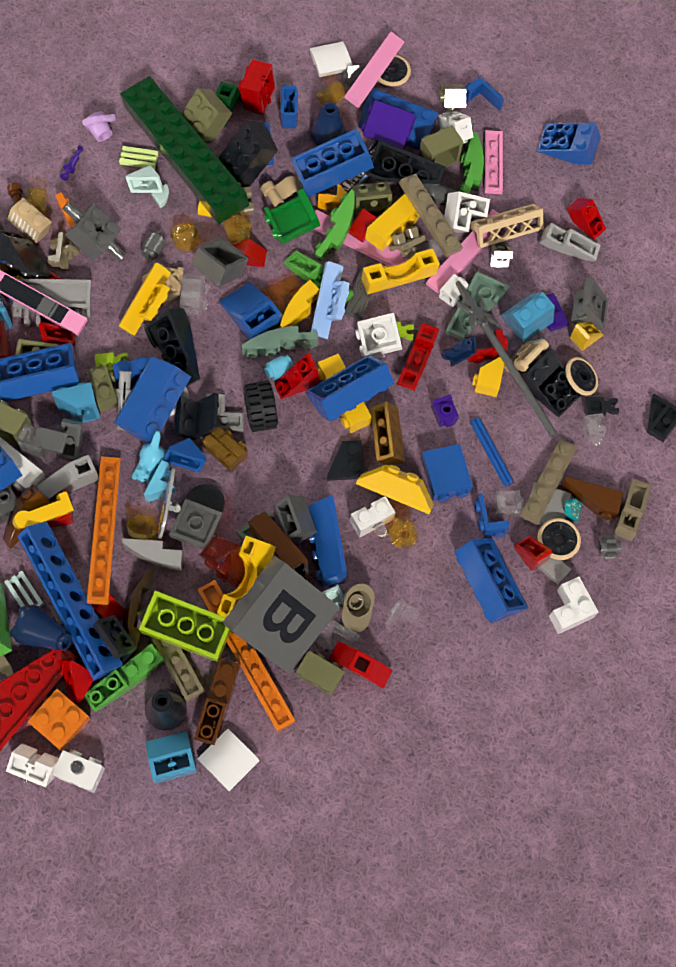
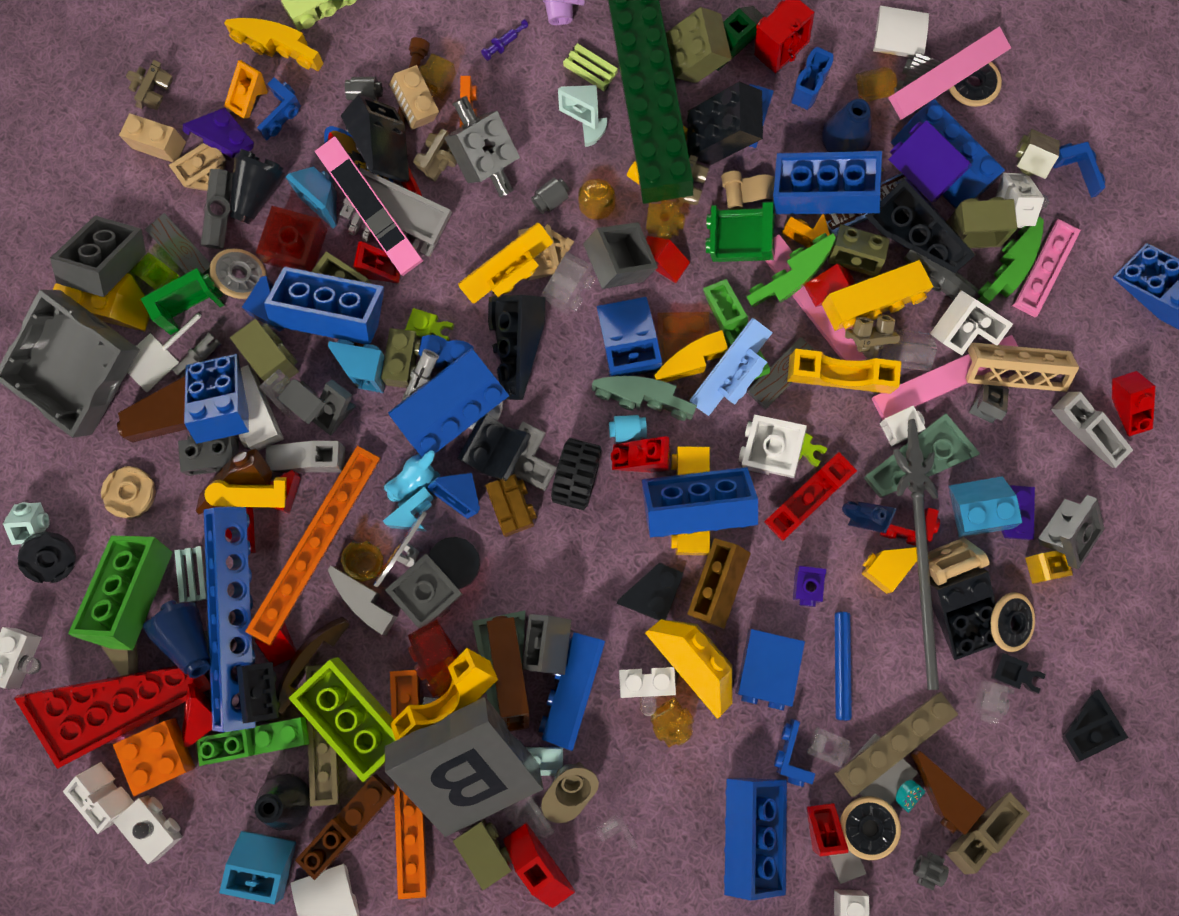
camera: 35 degrees right, 10 degrees up
(430, 215) = (922, 312): dark tan plate -> none

